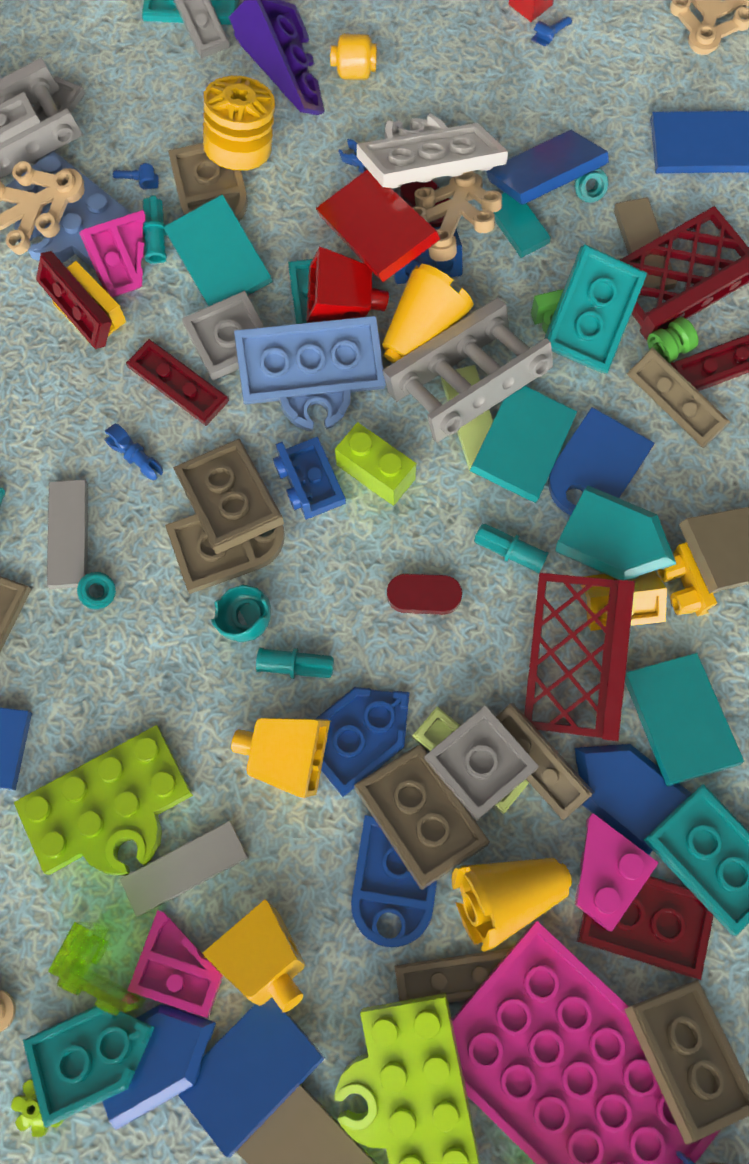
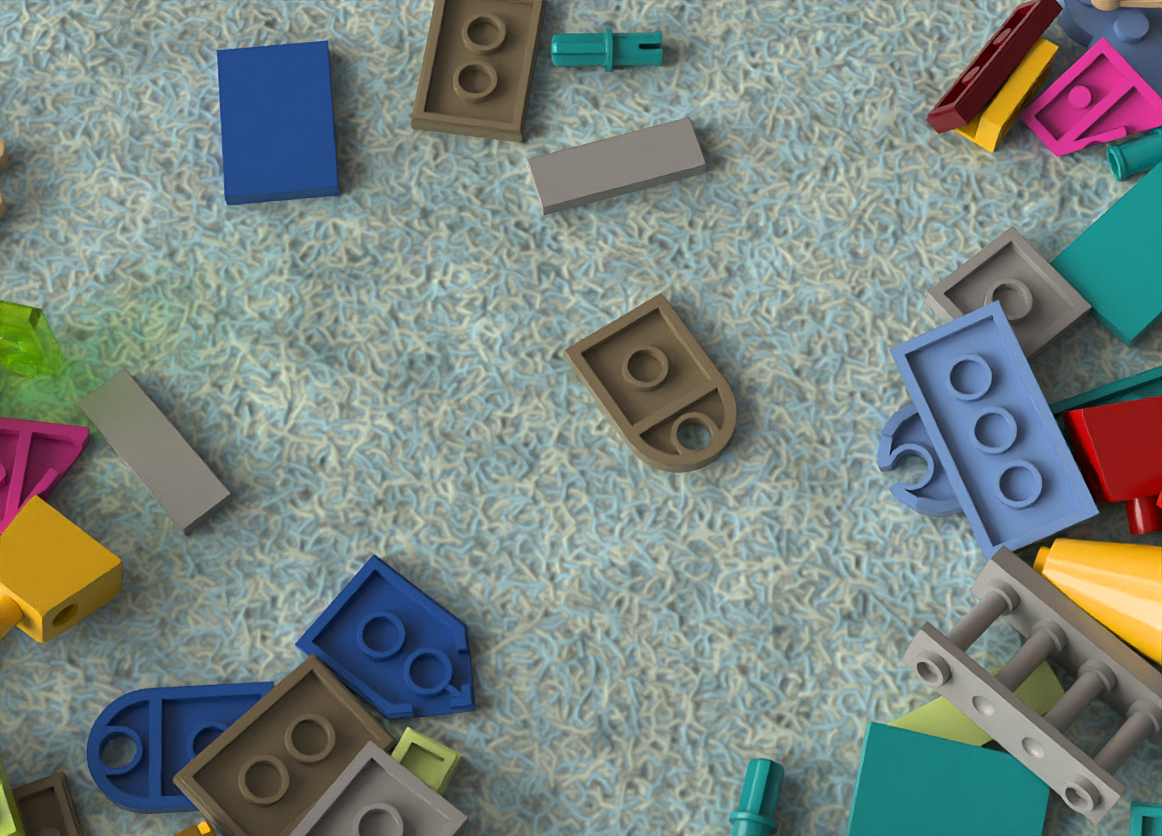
camera: 75 degrees right, 5 degrees down
(99, 579) = (523, 214): teal plate -> none
(105, 805) = (225, 327): lime plate -> none
(133, 452) = (770, 217): blue piece -> none
(177, 382) = (907, 252): dark red tile -> none
(228, 496) = (729, 368): dark tan tile -> none
(254, 608) = (527, 418): teal hair -> none
(285, 752) = (339, 543): yellow torso -> none
(294, 663) = (485, 529): teal axle -> none
(310, 476) = (790, 478): blue bracket -> none
(375, 463) = (838, 573): lime brick -> none
(424, 594) = (643, 700): dark red tile -> none

